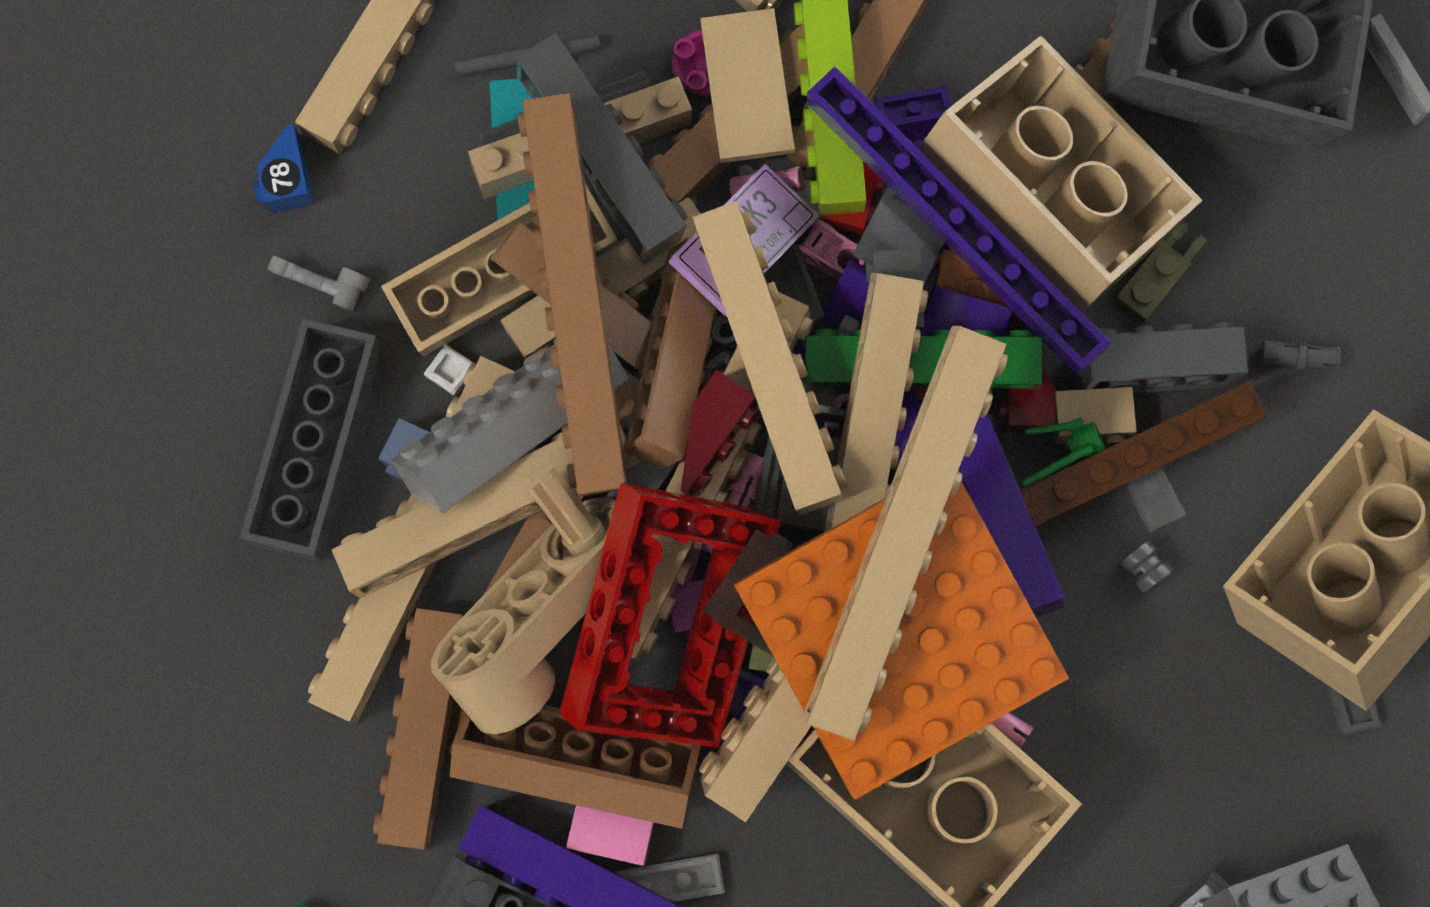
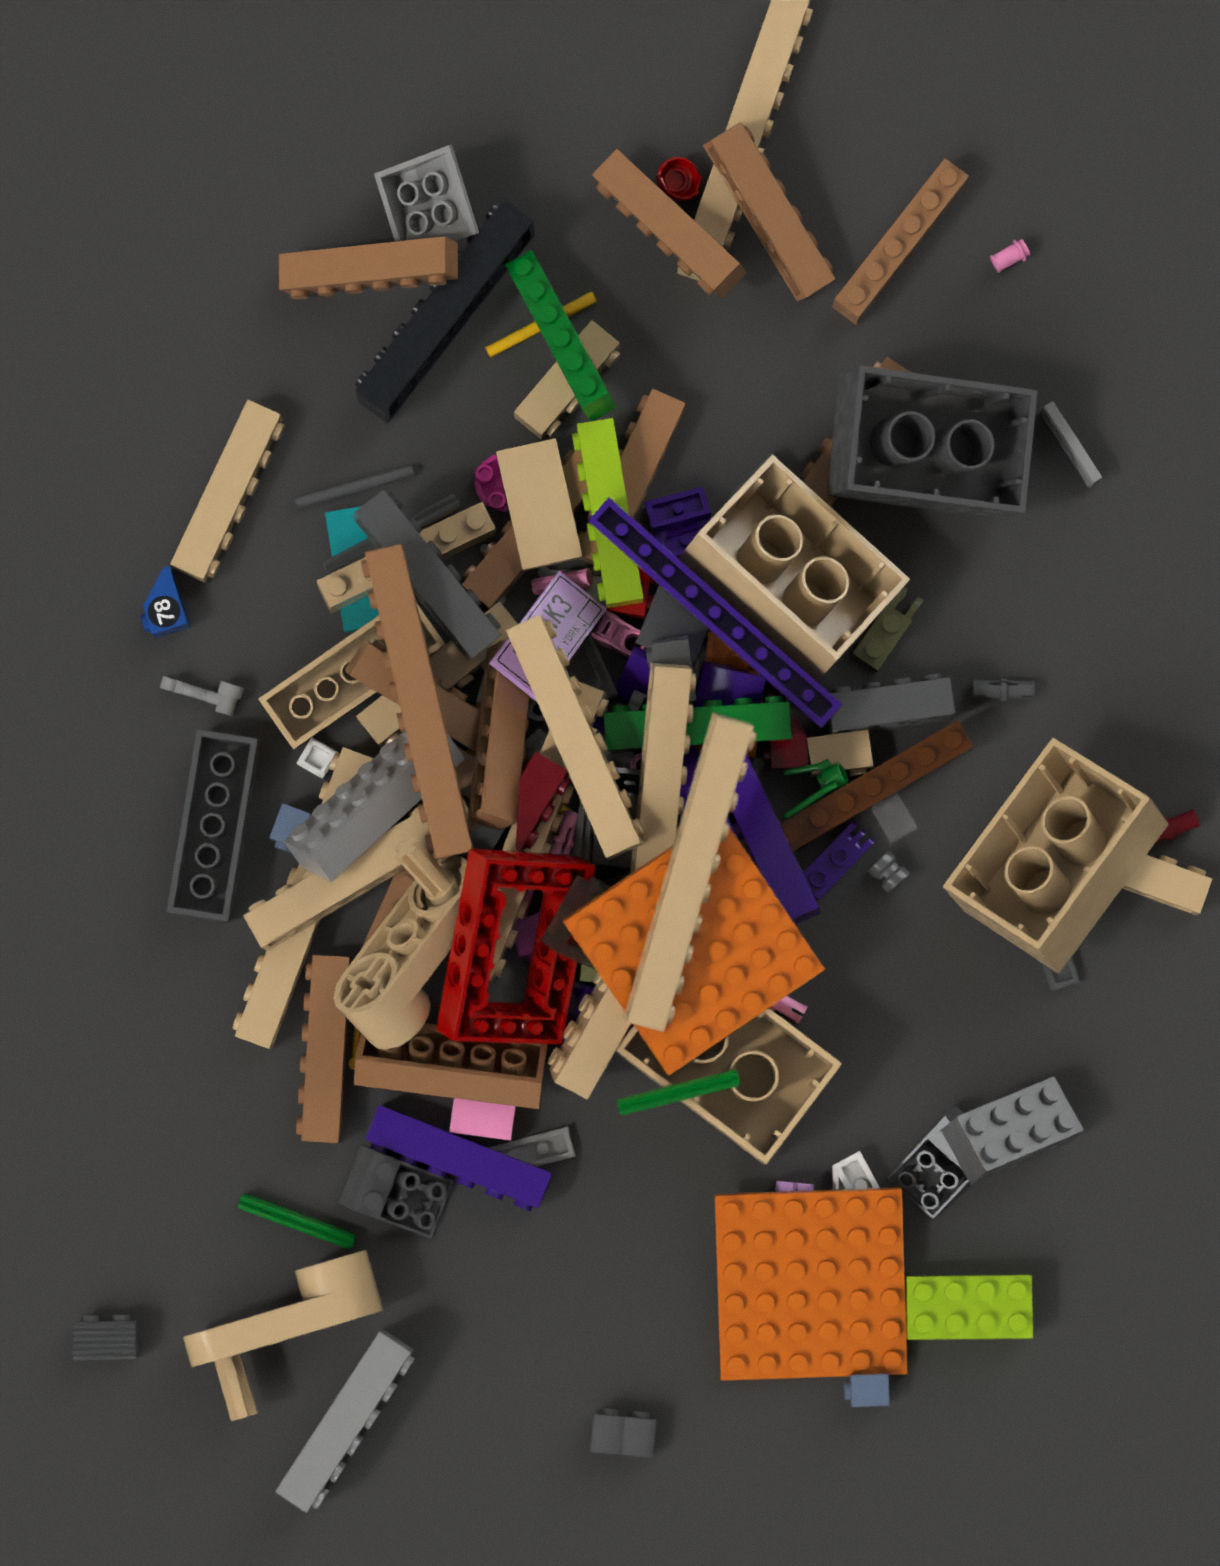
camera: 10 degrees left, 5 degrees up
(865, 823) = (678, 1092): none -> green axle
(1083, 544) = (836, 860): none -> dark purple hinge

